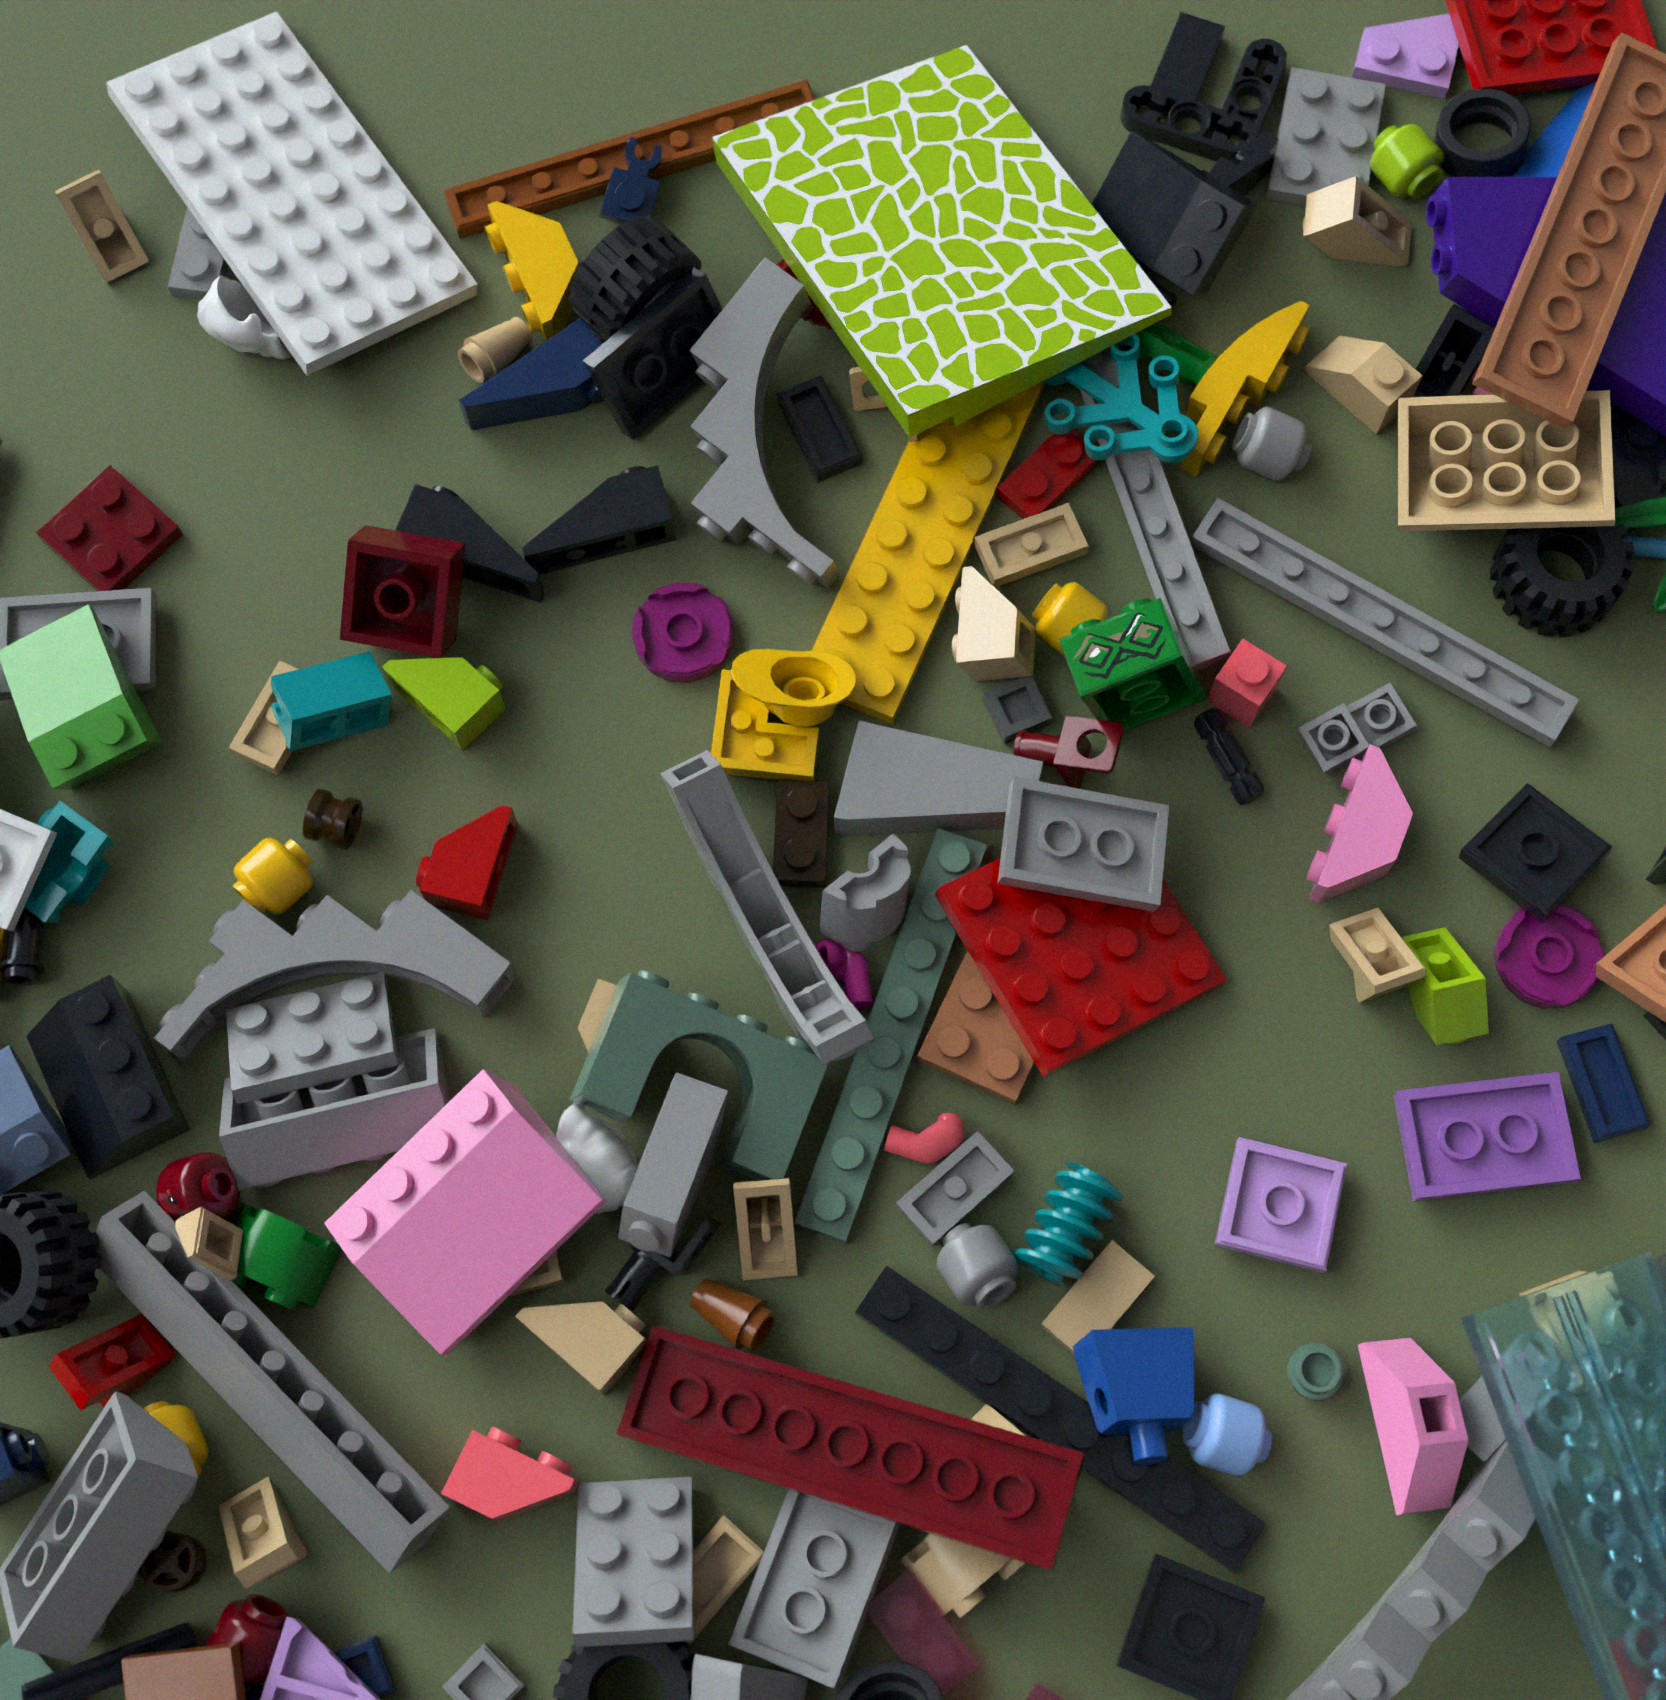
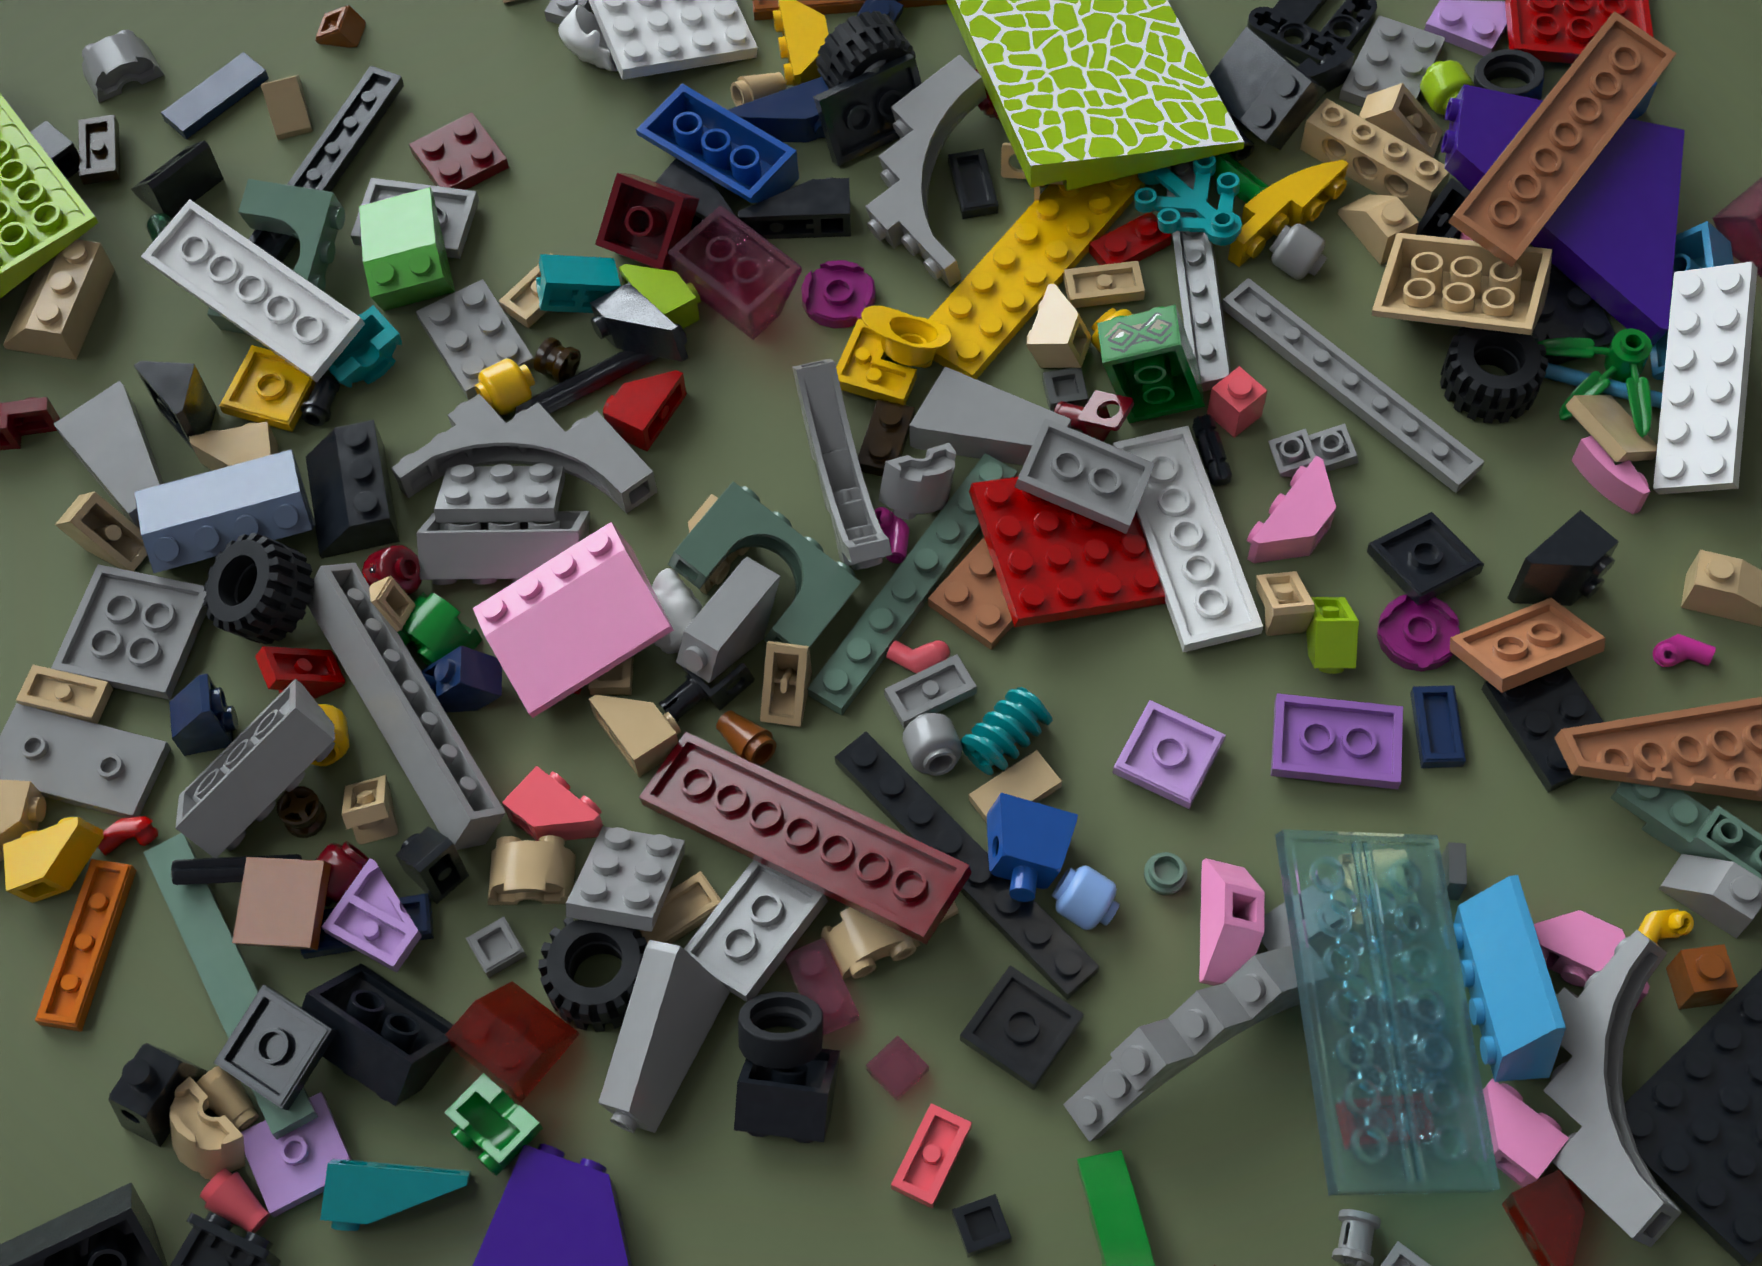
camera: 15 degrees right, 10 degrees down
(207, 803) = (472, 334): none -> light grey plate
(338, 1323) = (465, 680): none -> dark blue slope
(366, 1597) = (432, 863): none -> black slope
(401, 818) = (591, 379): none -> black axle
(428, 748) = (636, 324): none -> black slope
(470, 454) = (721, 145): none -> blue slope
(502, 1571) = (531, 871): none -> tan cylinder
(541, 637) = (736, 271): none -> clear pink slope
(1235, 897) = (1191, 544): none -> white plate
(1338, 285) = (1374, 157): none -> tan brick

